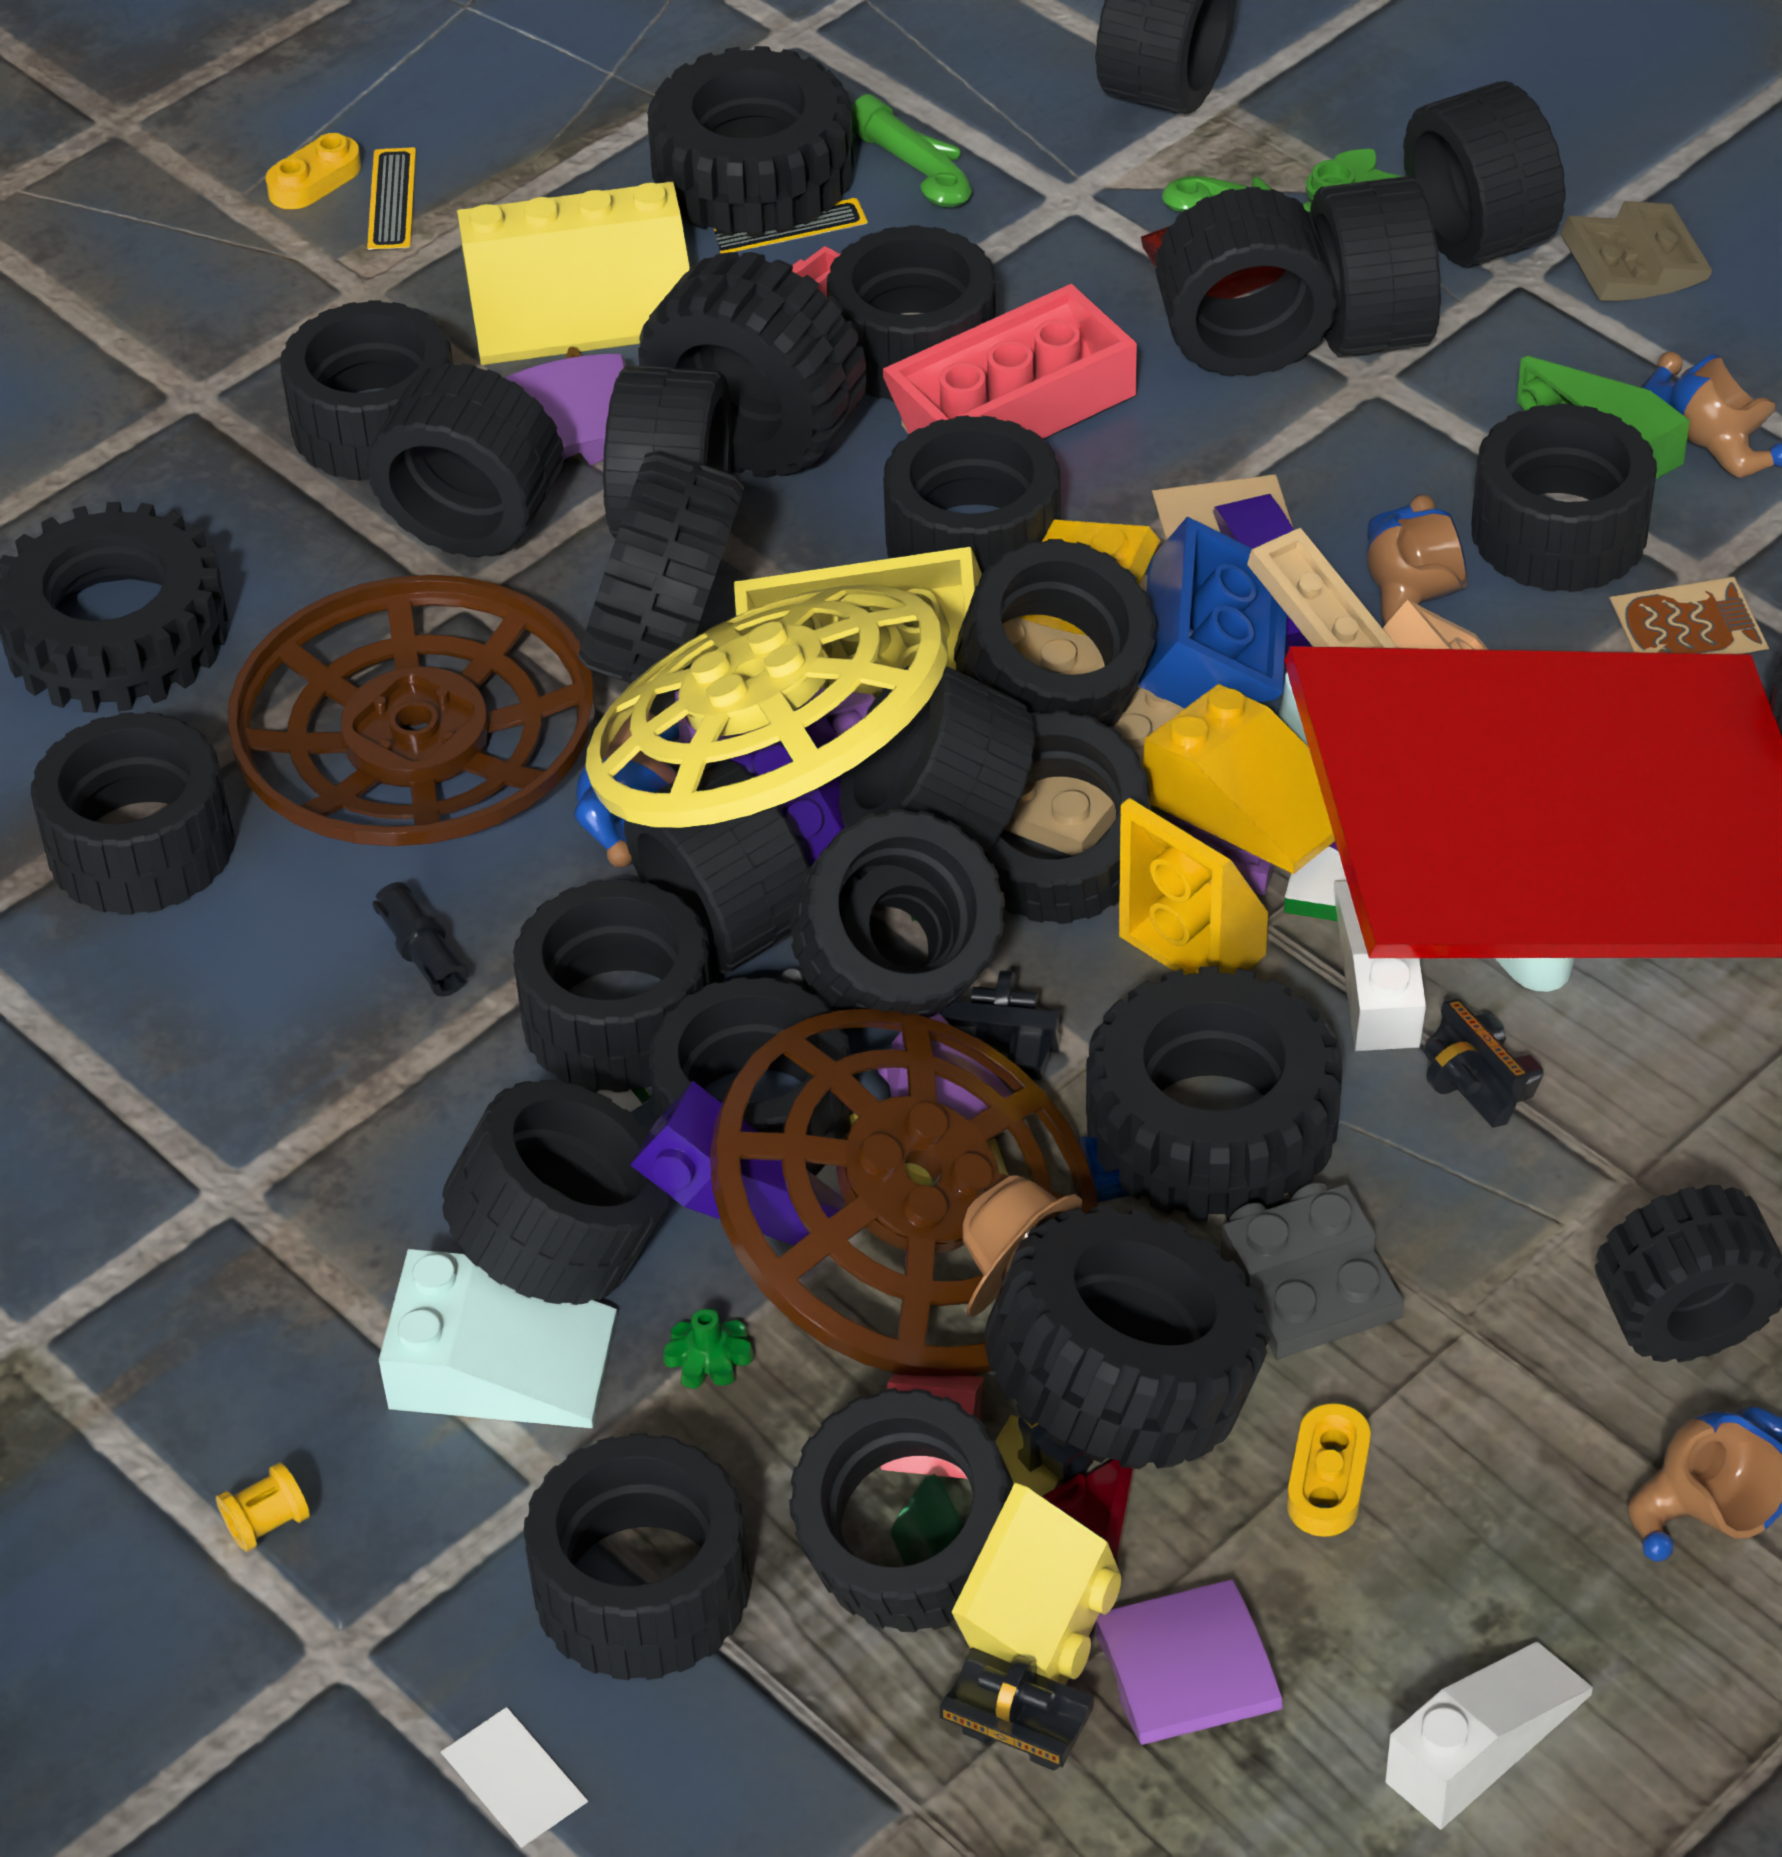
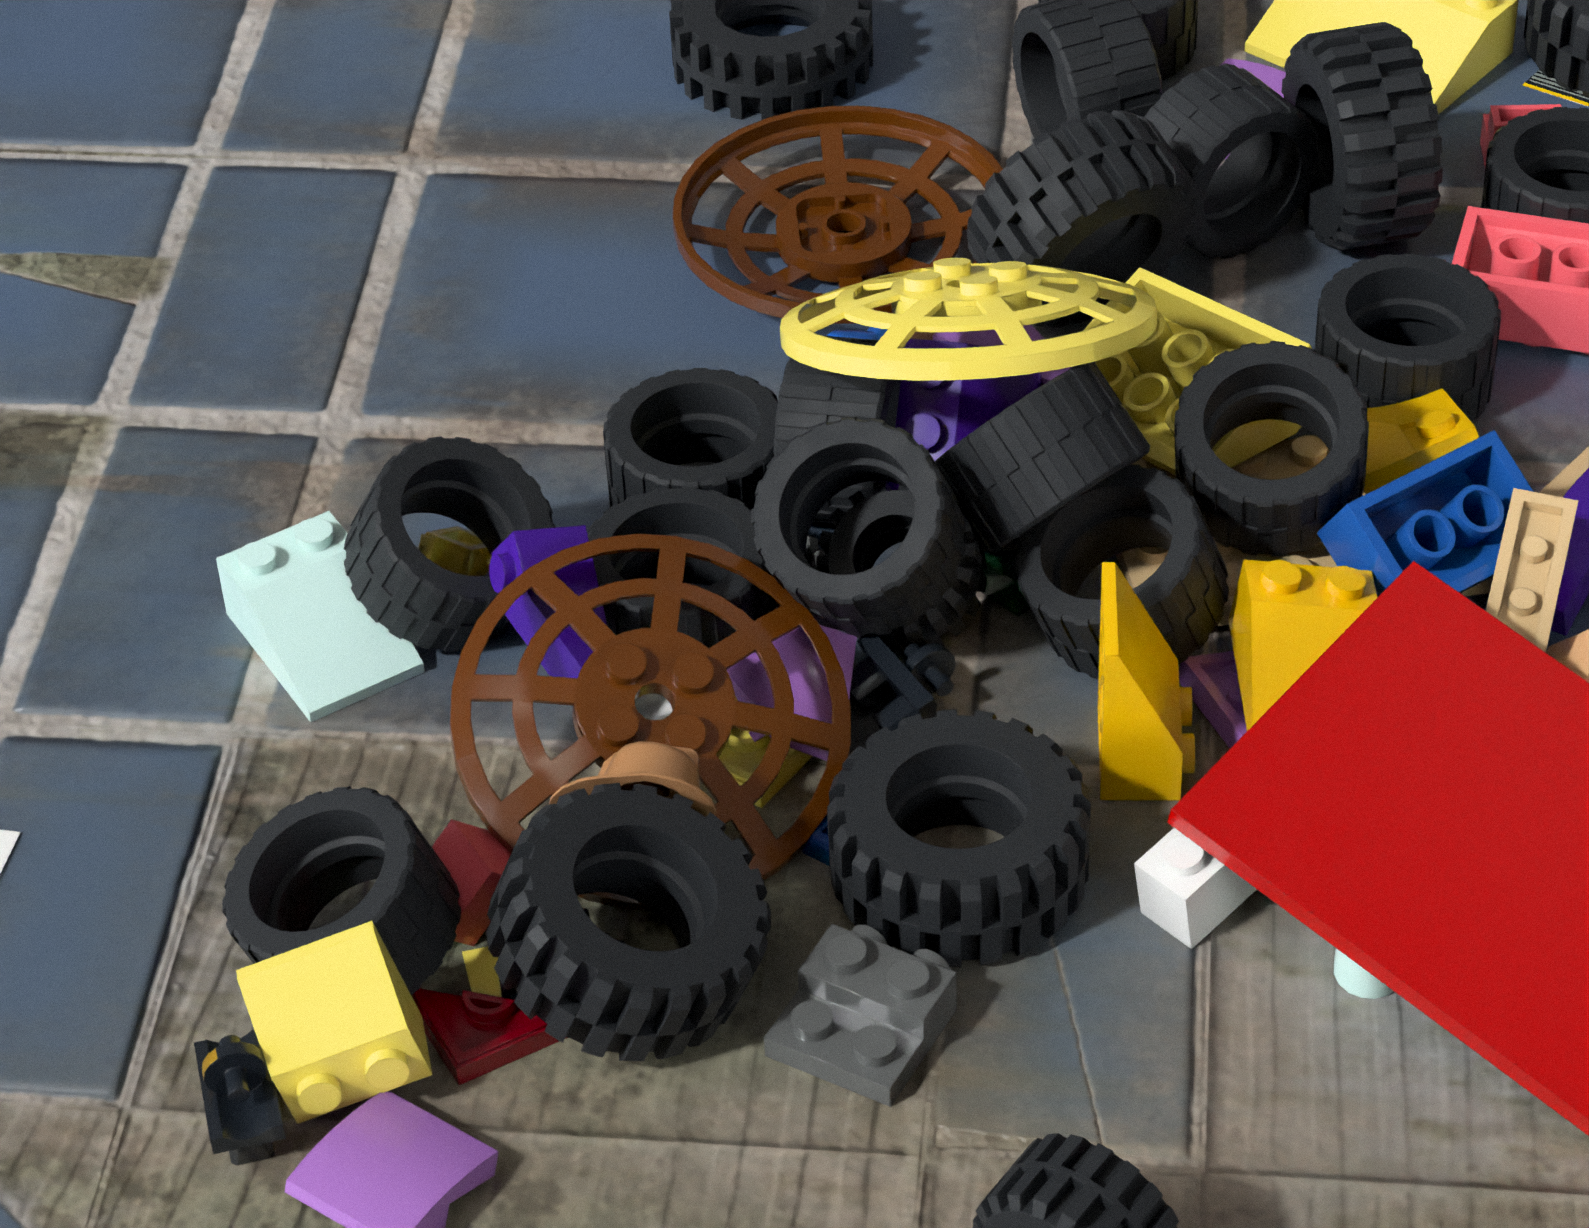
camera: 50 degrees right, 5 degrees down
(141, 861) = (591, 156): black tyre -> none
(262, 1507) = (65, 600): yellow bush -> none
(420, 939) = (652, 352): black pin -> none
(625, 1487) = (166, 747): black tyre -> none
(707, 1348) = (428, 730): green plant -> none
(1328, 1474) = (664, 1146): yellow plate -> none
(1471, 1058) = (1185, 976): black hips -> none

